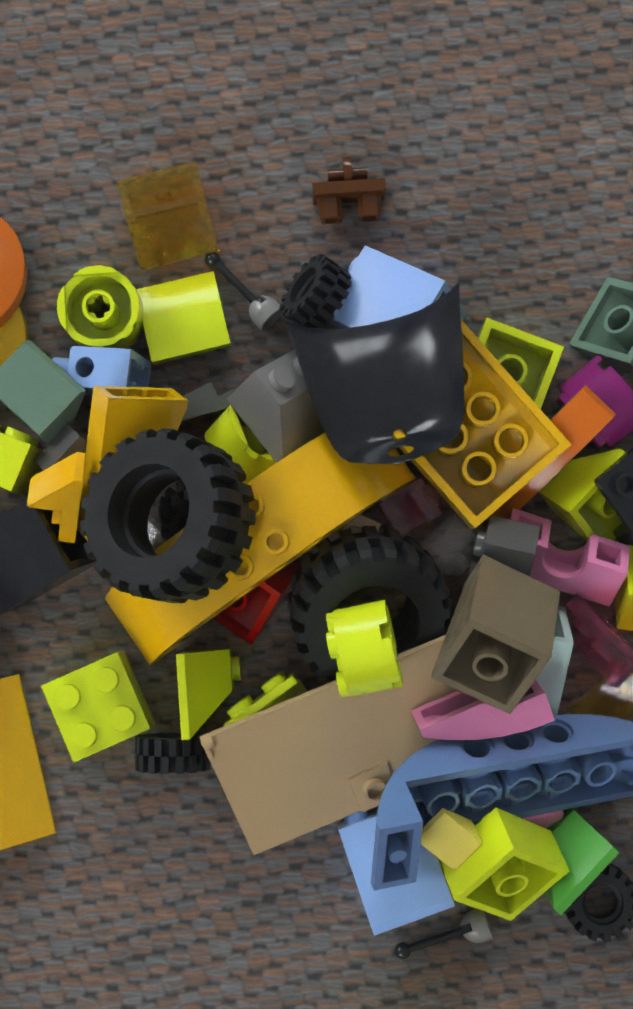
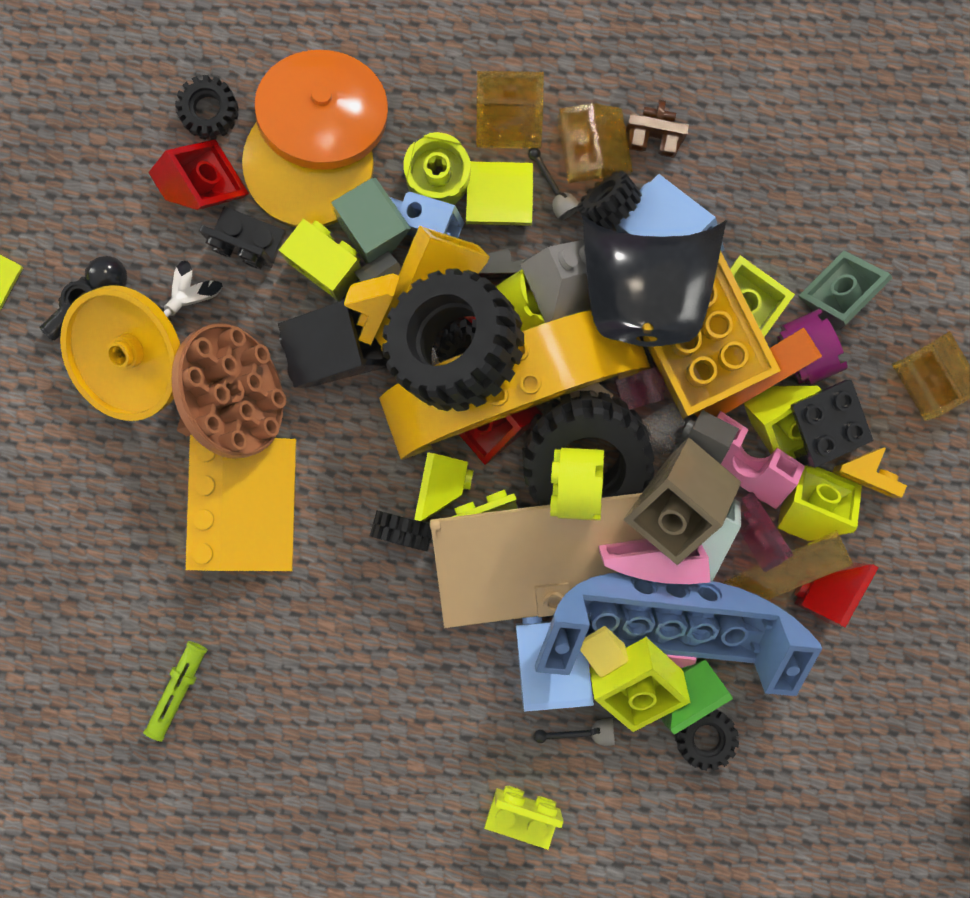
camera: 10 degrees right, 0 degrees up
(98, 706) = (353, 478): neon yellow brick -> none
(278, 227) = (593, 141): none -> clear yellow slope

